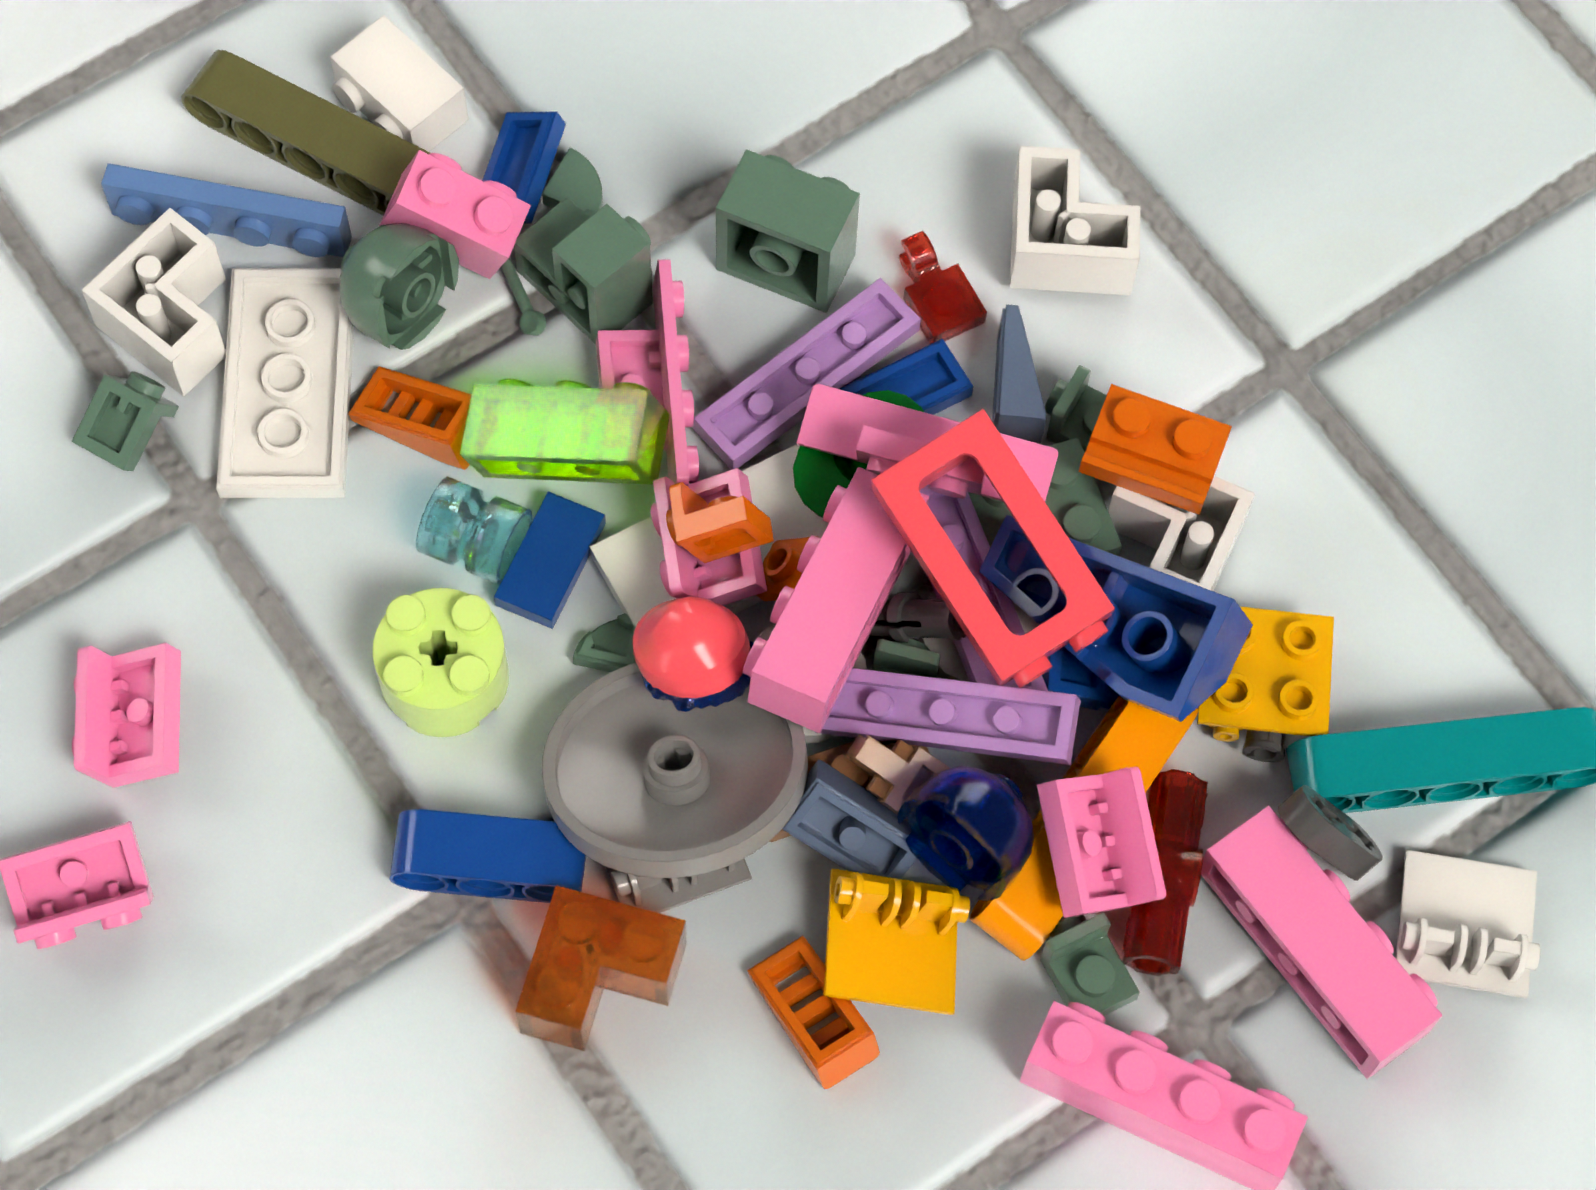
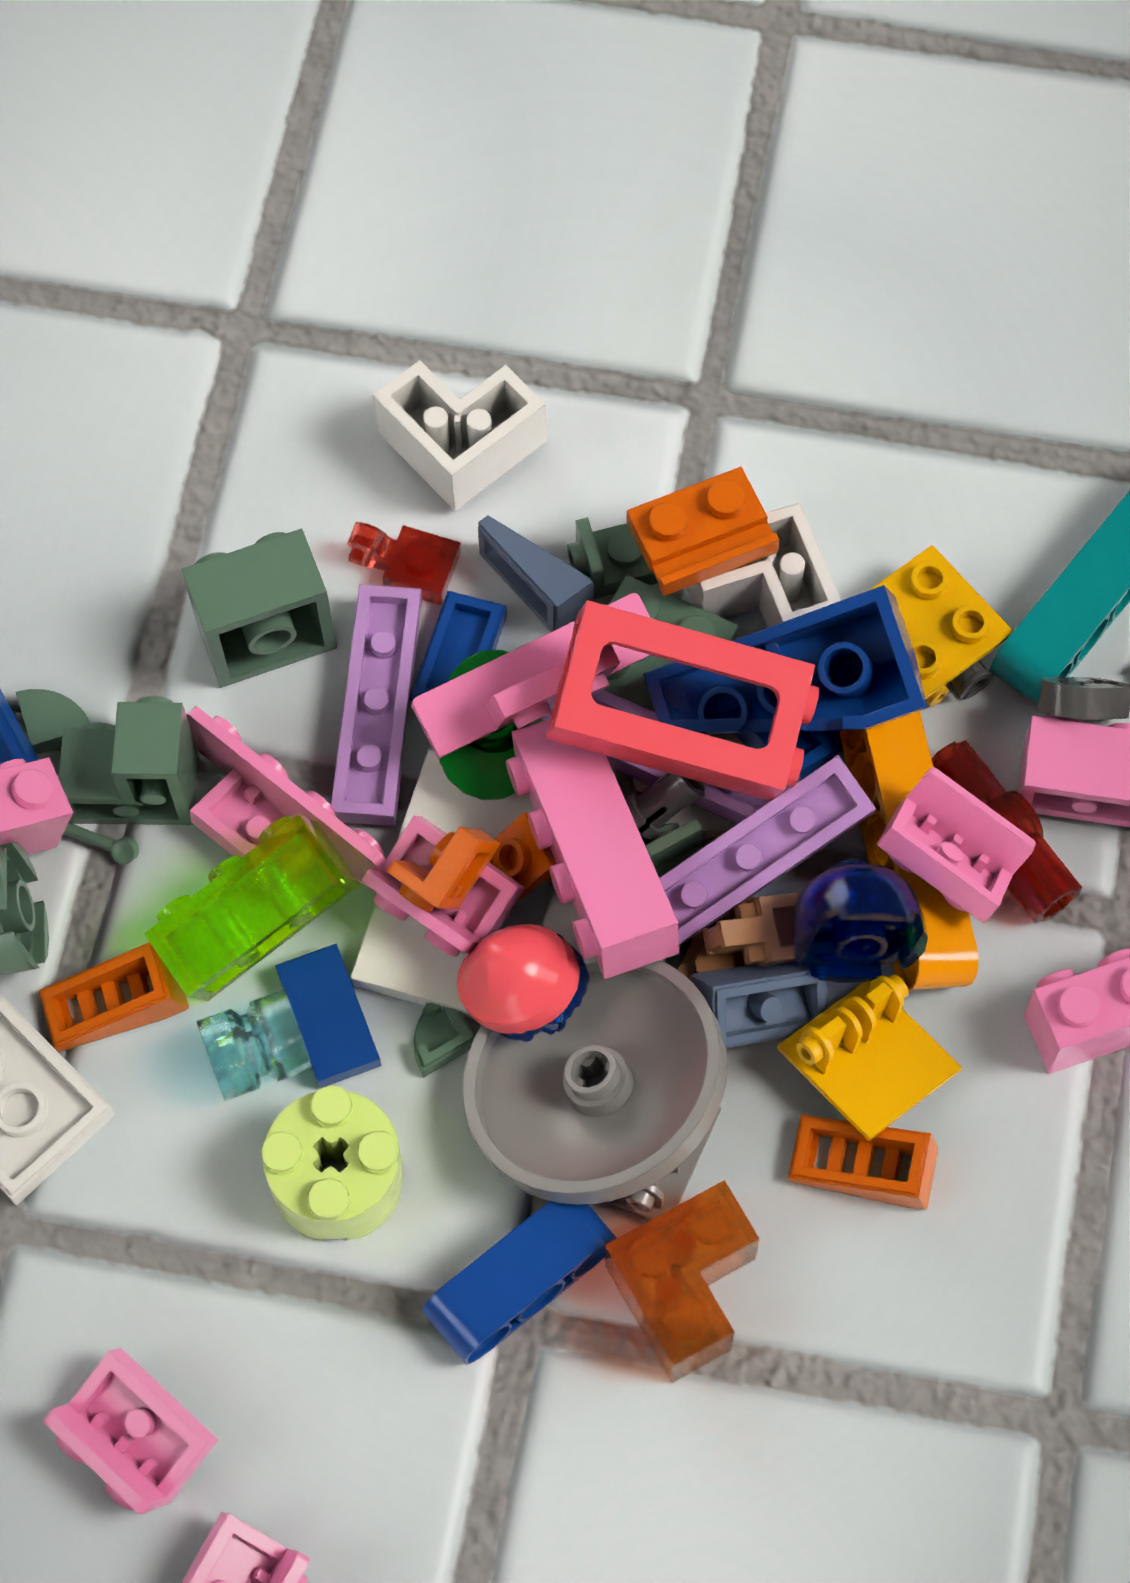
camera: 40 degrees left, 0 degrees up
(1087, 965) = (1017, 949): sand green bracket -> none

